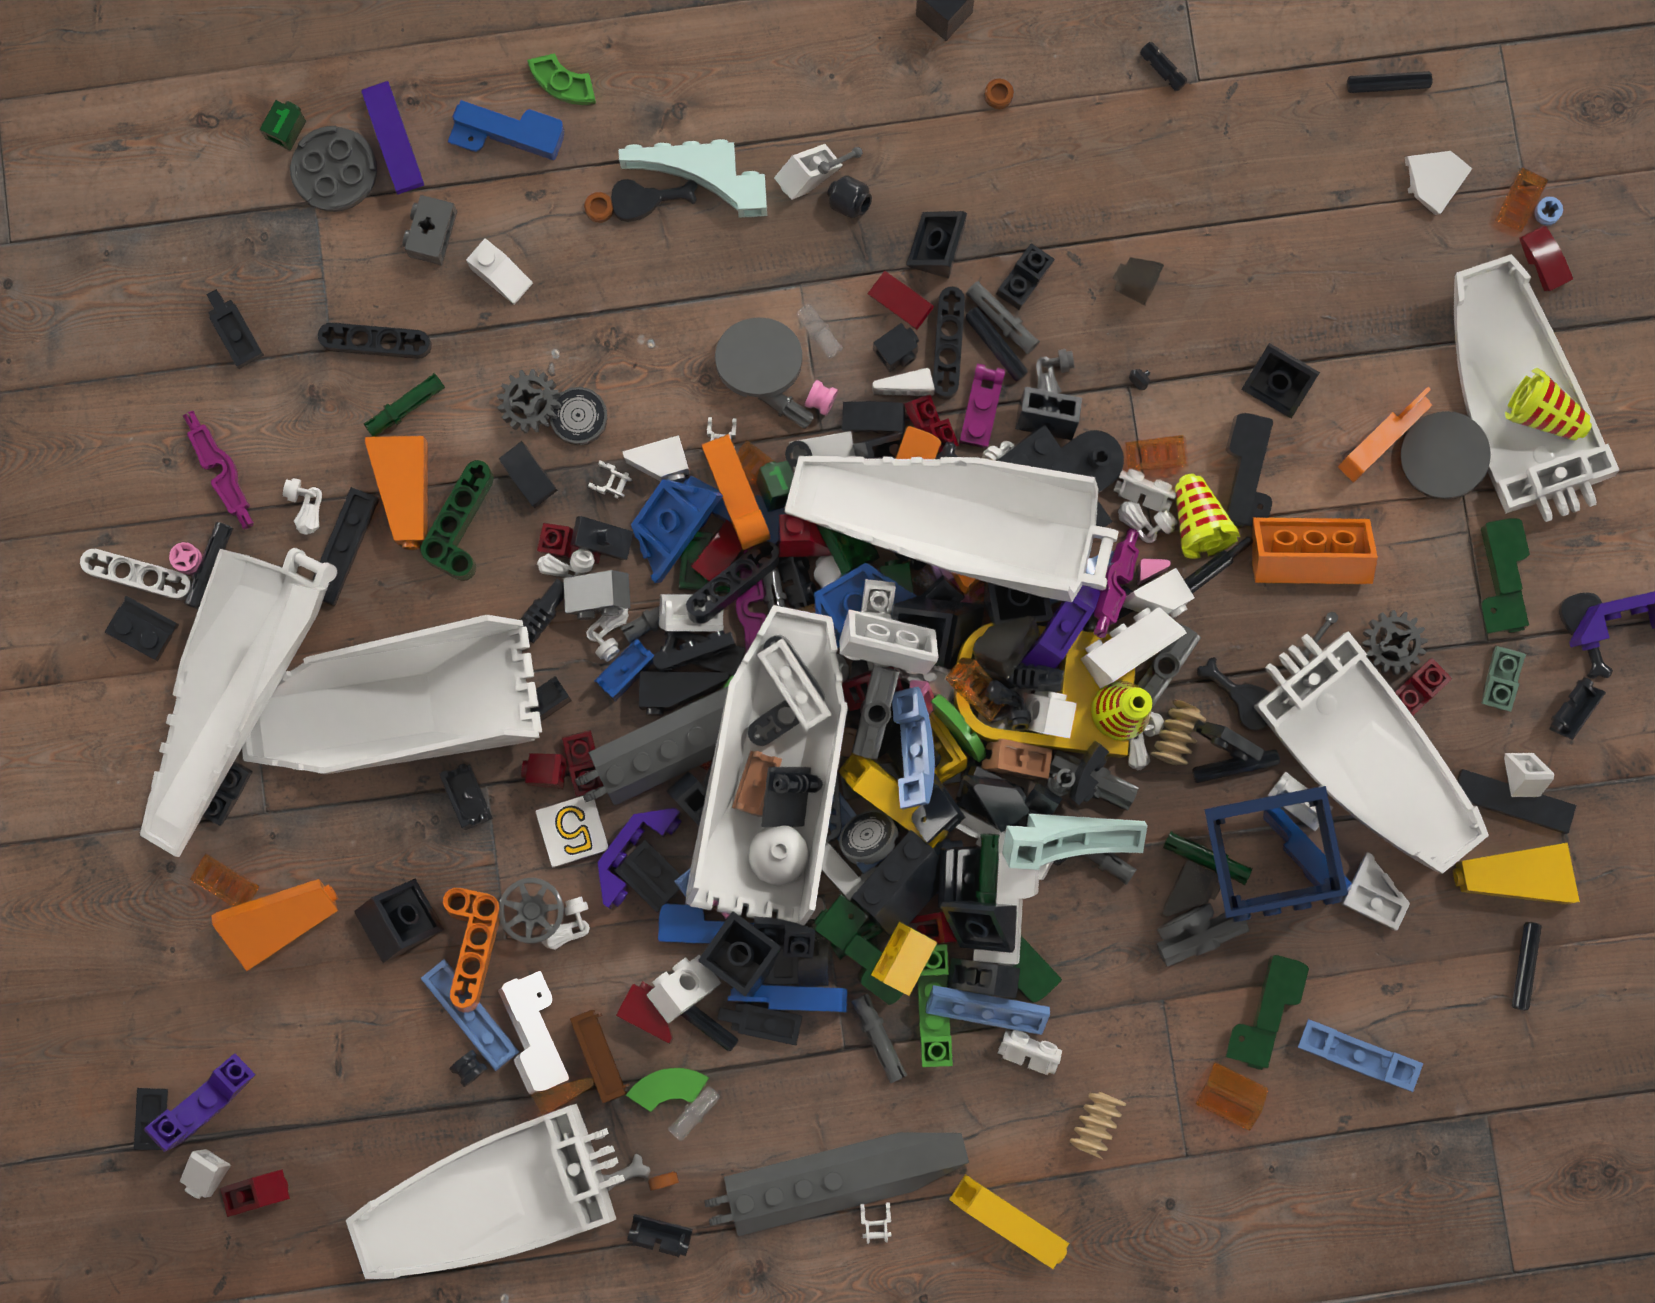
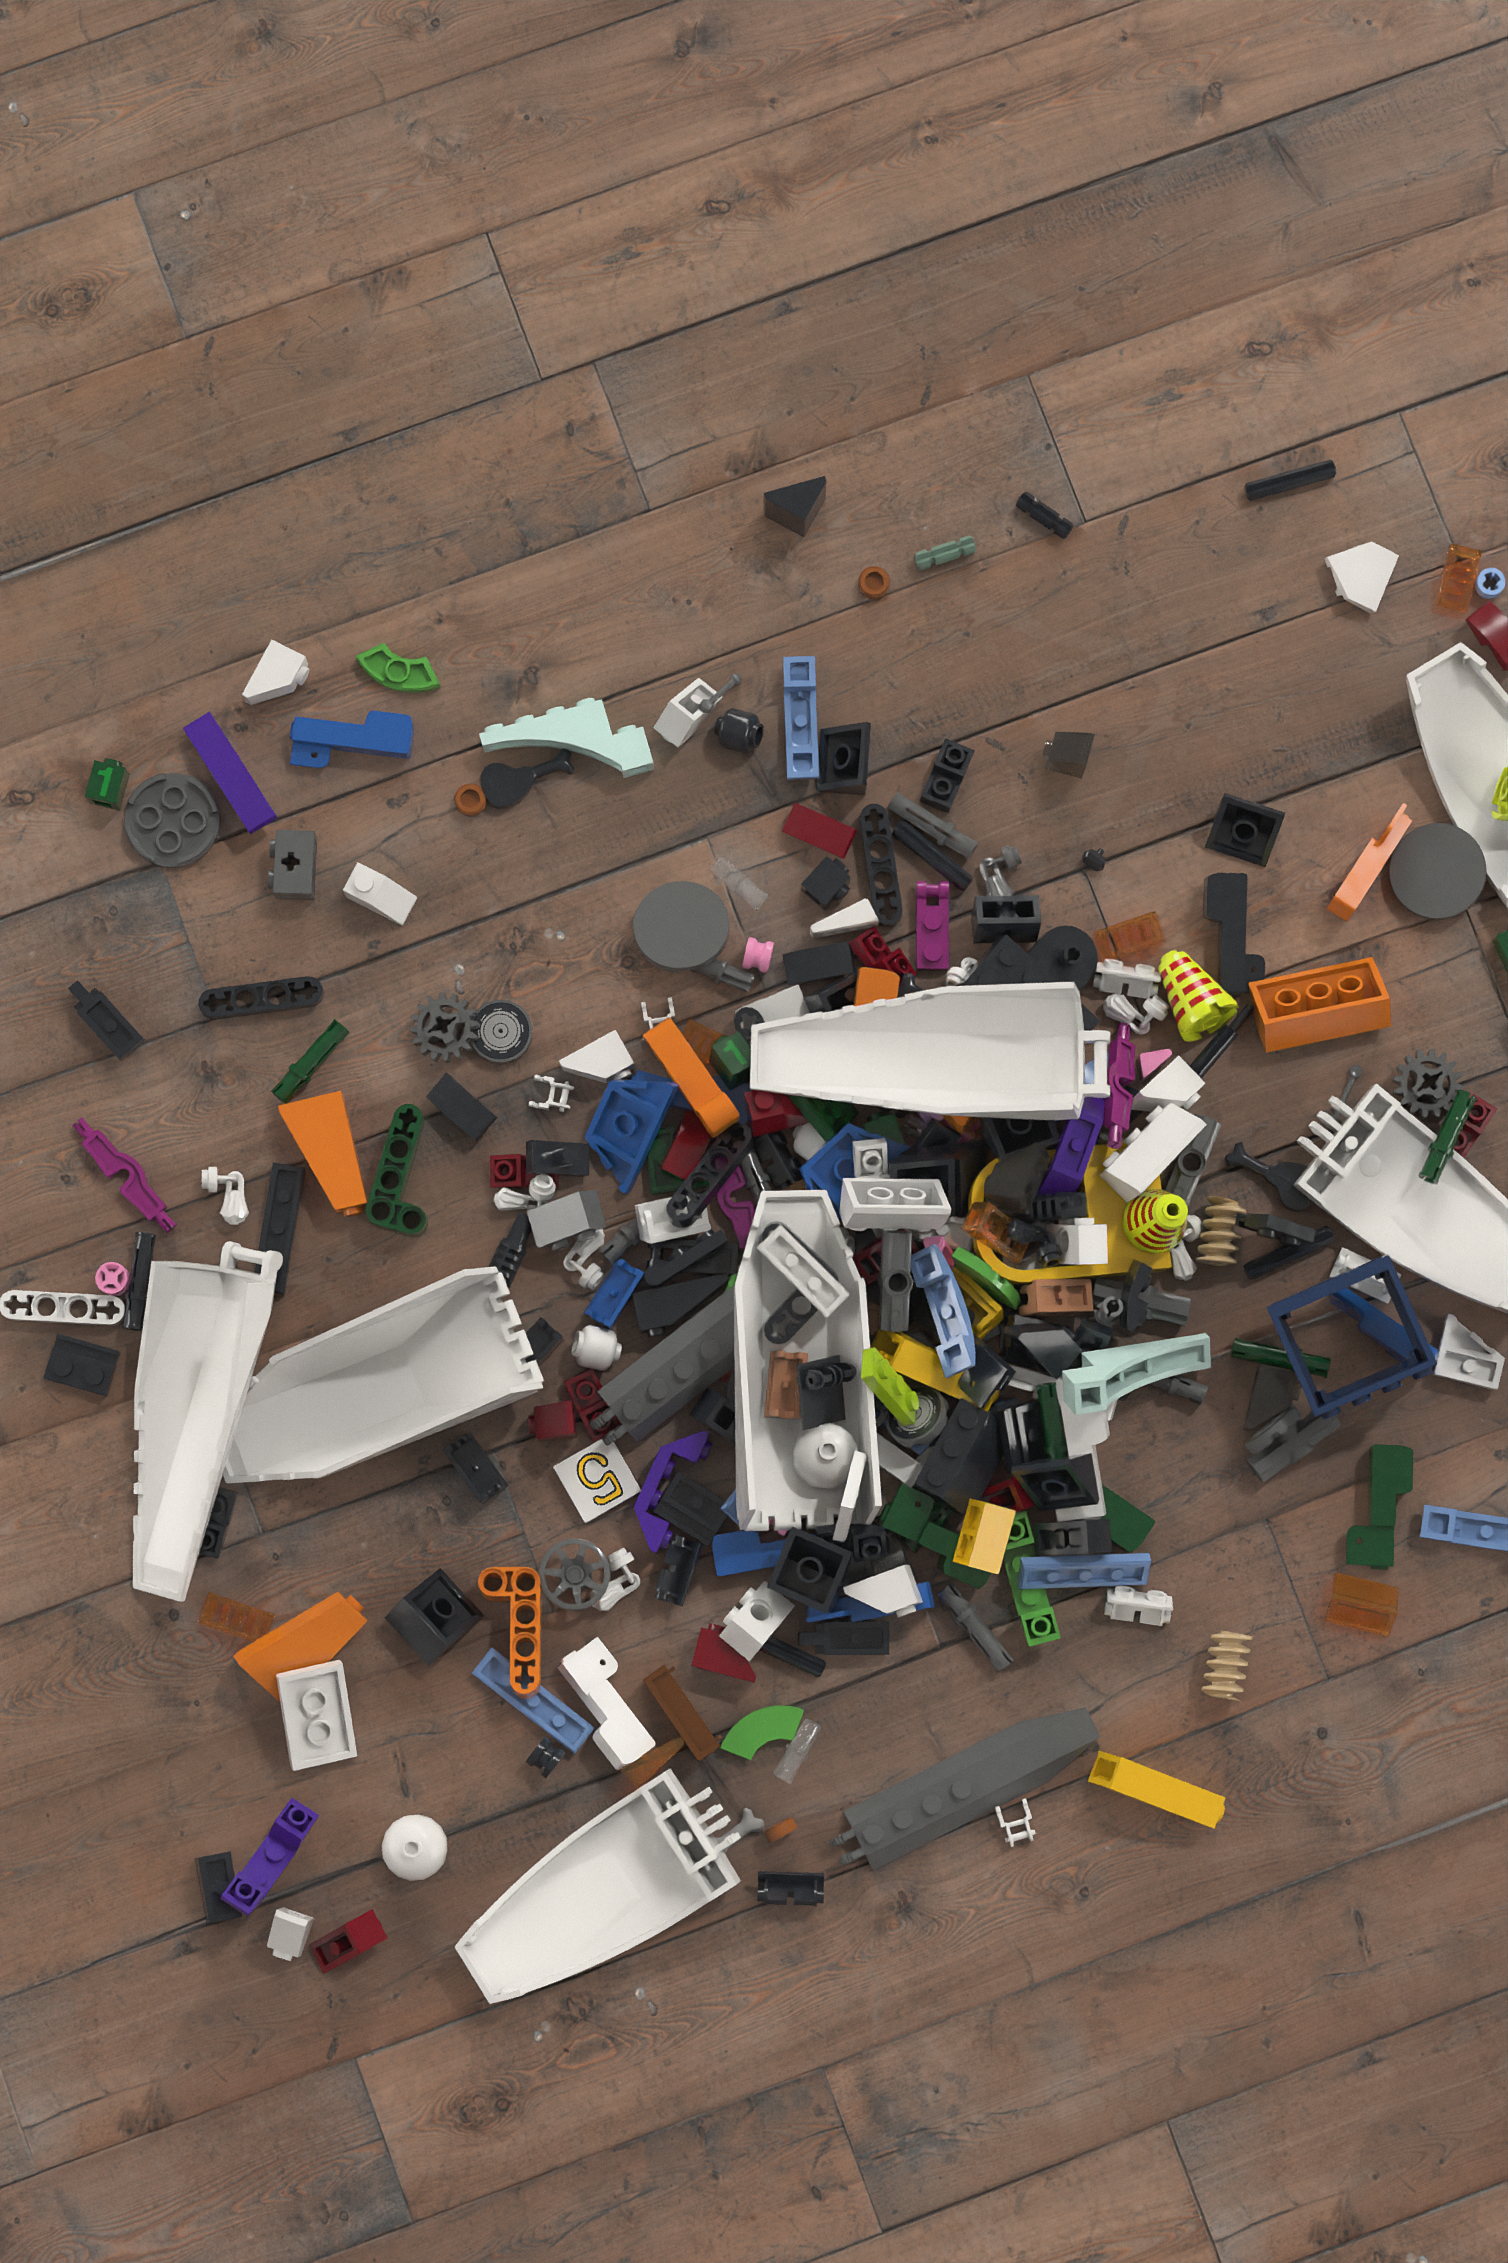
camera: 15 degrees left, 0 degrees up
(272, 984) = (316, 1715): none -> white plate
(334, 1122) = (414, 1847): none -> white cylinder
(453, 60) = (276, 674): none -> white slope
(597, 713) = (596, 1348): none -> white head
(631, 917) = (674, 1582): none -> black hinge
(789, 896) = (850, 1496): none -> white tile
(806, 989) = (888, 1591): none -> white slope
(847, 805) = (889, 1386): none -> lime plate
(907, 197) = (800, 717): none -> medium blue slope
(1067, 80) = (945, 552): none -> sand green axle
(1395, 702) = (1442, 1148): none -> dark green pin

